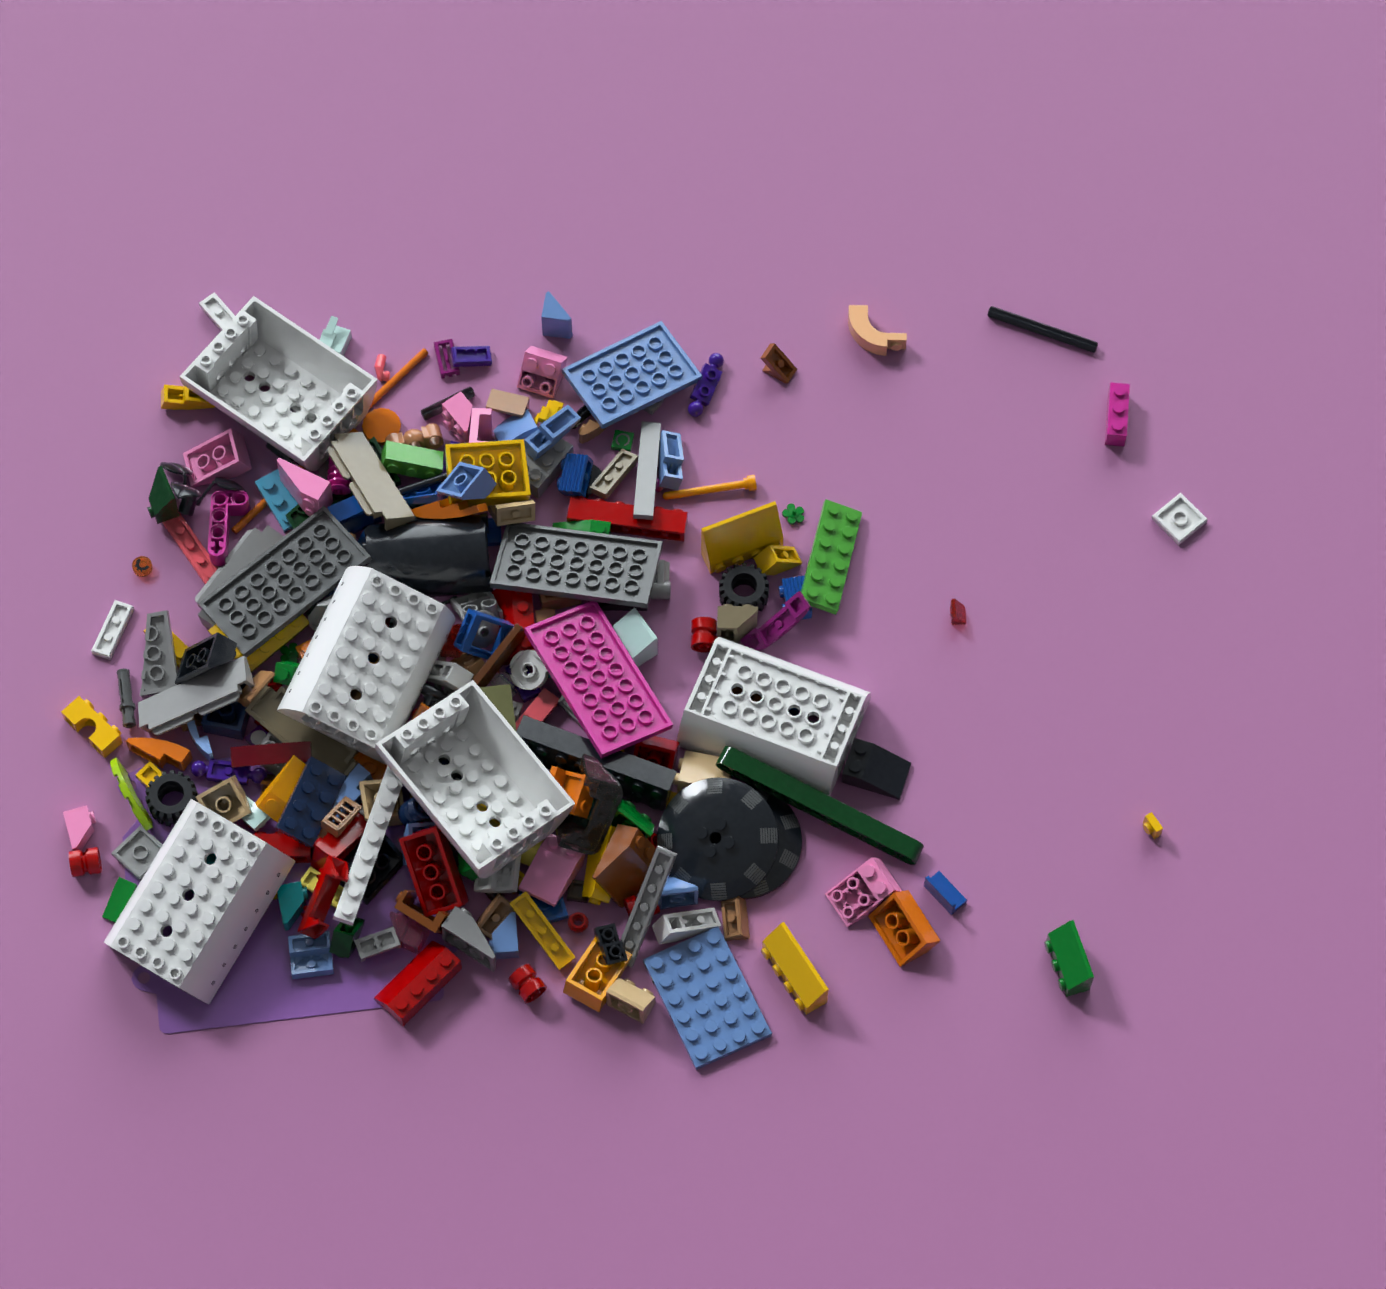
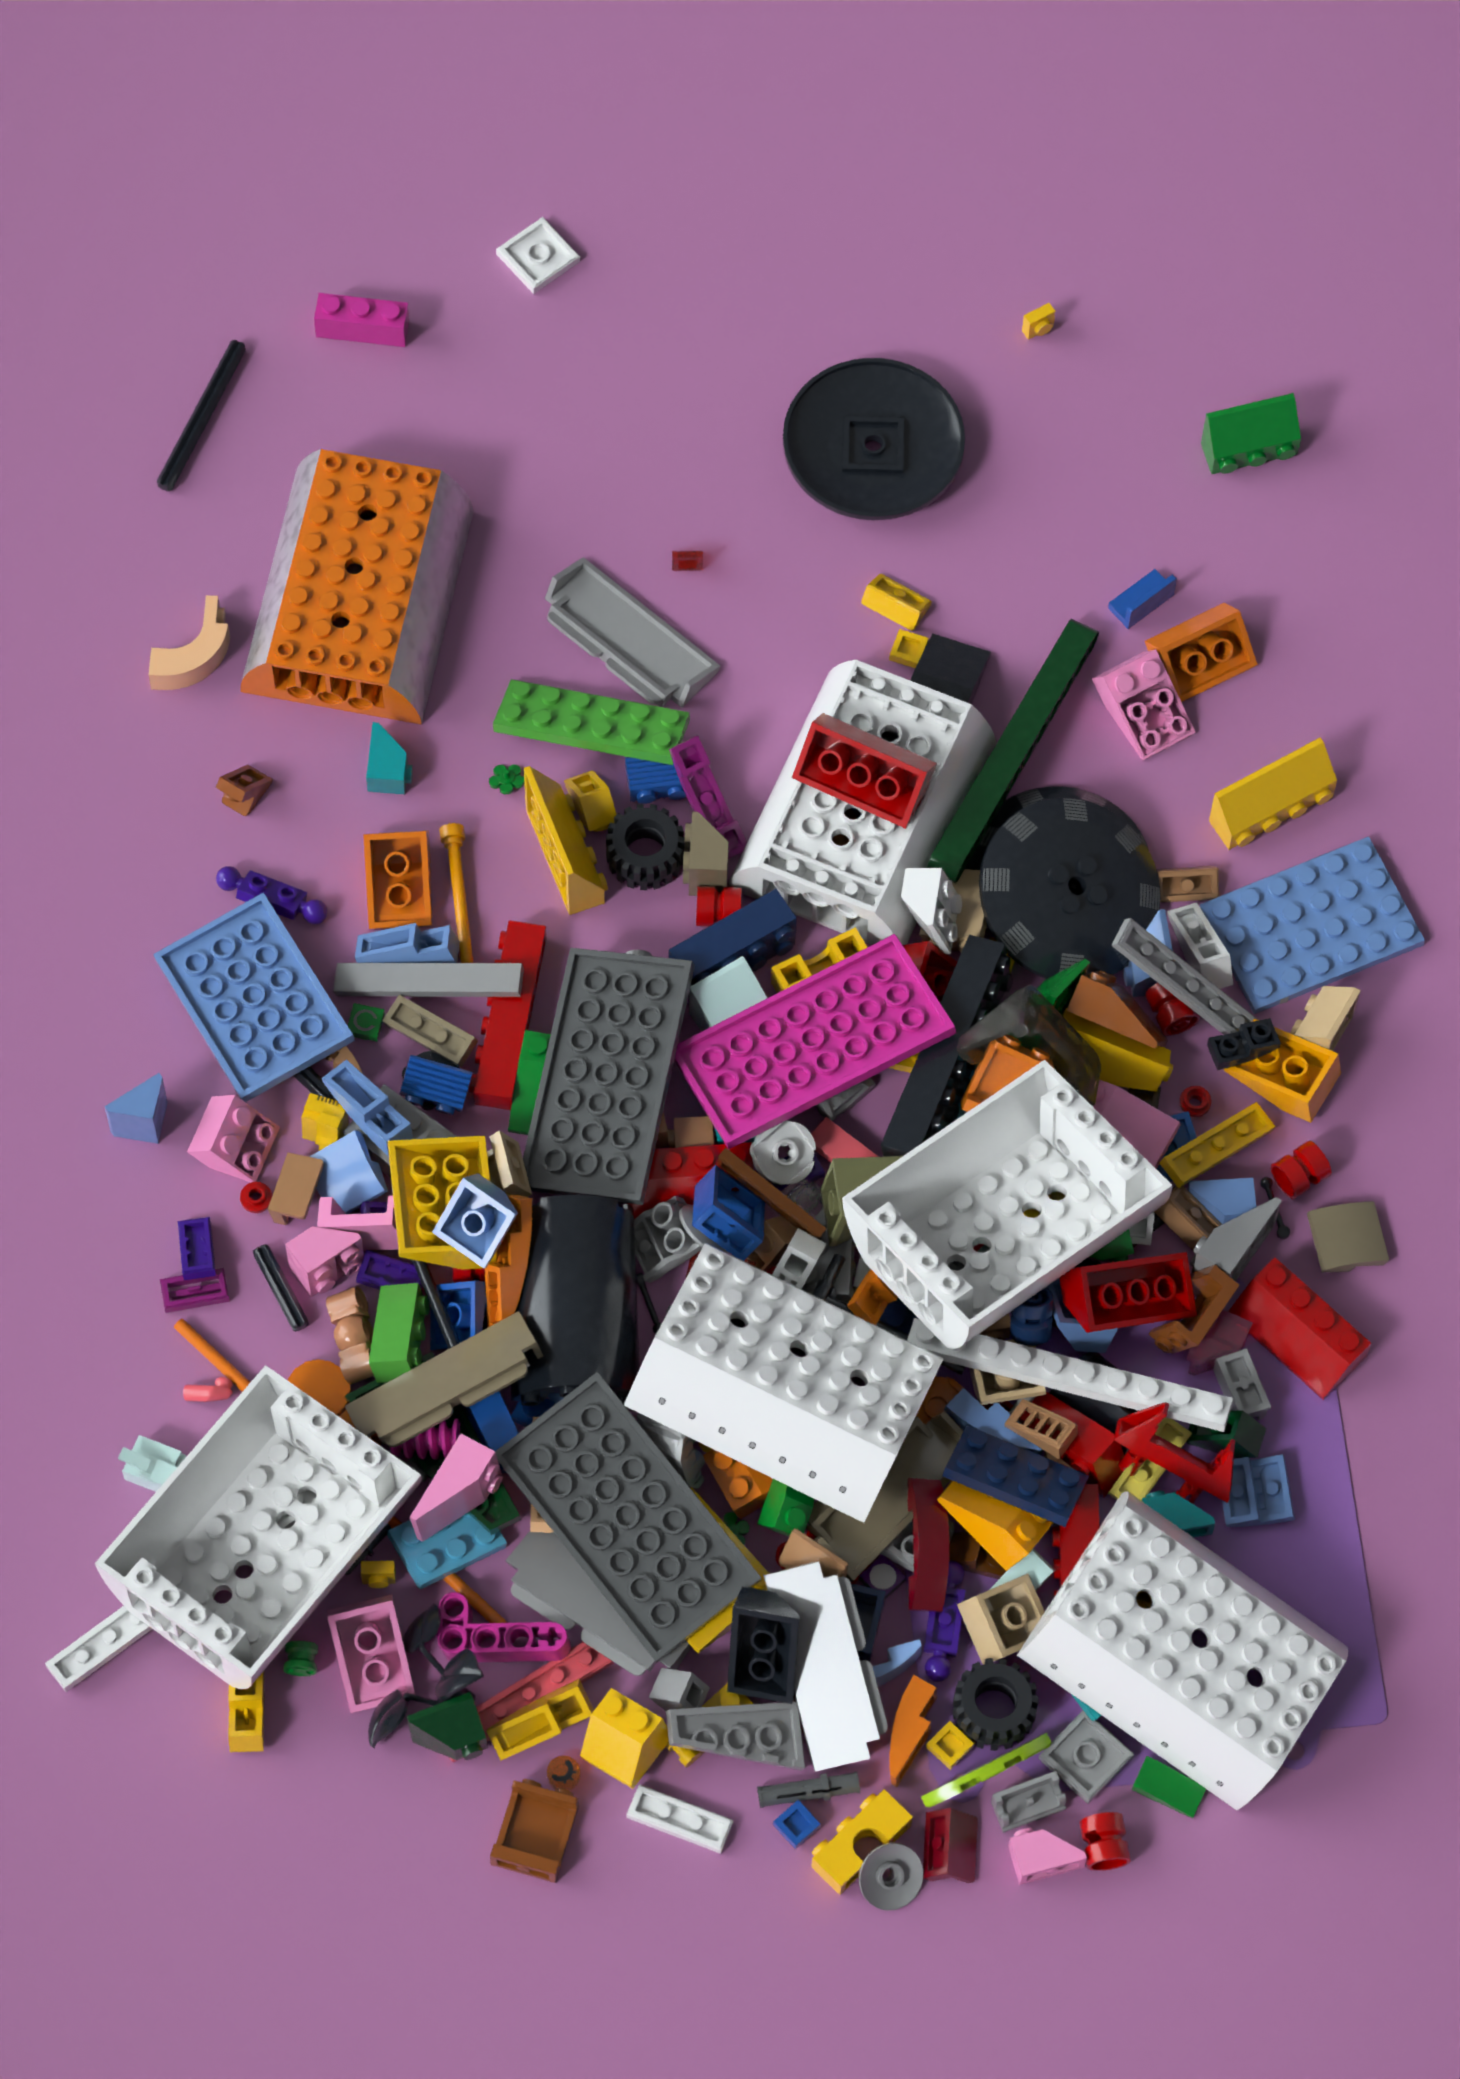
camera: 90 degrees left, 0 degrees up
(63, 745) = (902, 1883): none -> light grey dish
(88, 778) = (950, 1845): none -> dark red panel
(104, 691) = (796, 1824): none -> blue plate
(105, 551) = (535, 1830): none -> dark orange panel
(113, 820) = (1028, 1802): none -> light grey hinge
(159, 593) = (623, 1738): none -> yellow slope
(172, 551) = (540, 1720): none -> yellow slope
(185, 623) = (678, 1690): none -> light grey brick
(214, 423) = (300, 1658): none -> green wheel
(264, 461) = (378, 1573): none -> yellow plate
(483, 1014) = (1348, 1236): none -> dark tan slope
(489, 976) = (1283, 1231): none -> black hinge
(505, 381) = (259, 1205): none -> red plate
(657, 681) = (796, 969): none -> yellow arch
(674, 641) = (754, 932): none -> dark blue brick
(692, 747) = (933, 904): none -> white slope
(720, 452) = (398, 878): none -> orange slope
(782, 698) = (863, 770): none -> red slope
(799, 442) = (387, 764): none -> teal slope
(894, 585) = (626, 636): none -> light grey slope
(897, 745) = (908, 648): none -> yellow plate
(912, 441) = (394, 605): none -> orange slope
(934, 740) = (895, 601): none -> yellow slope
(1054, 694) = (879, 403): none -> black dish

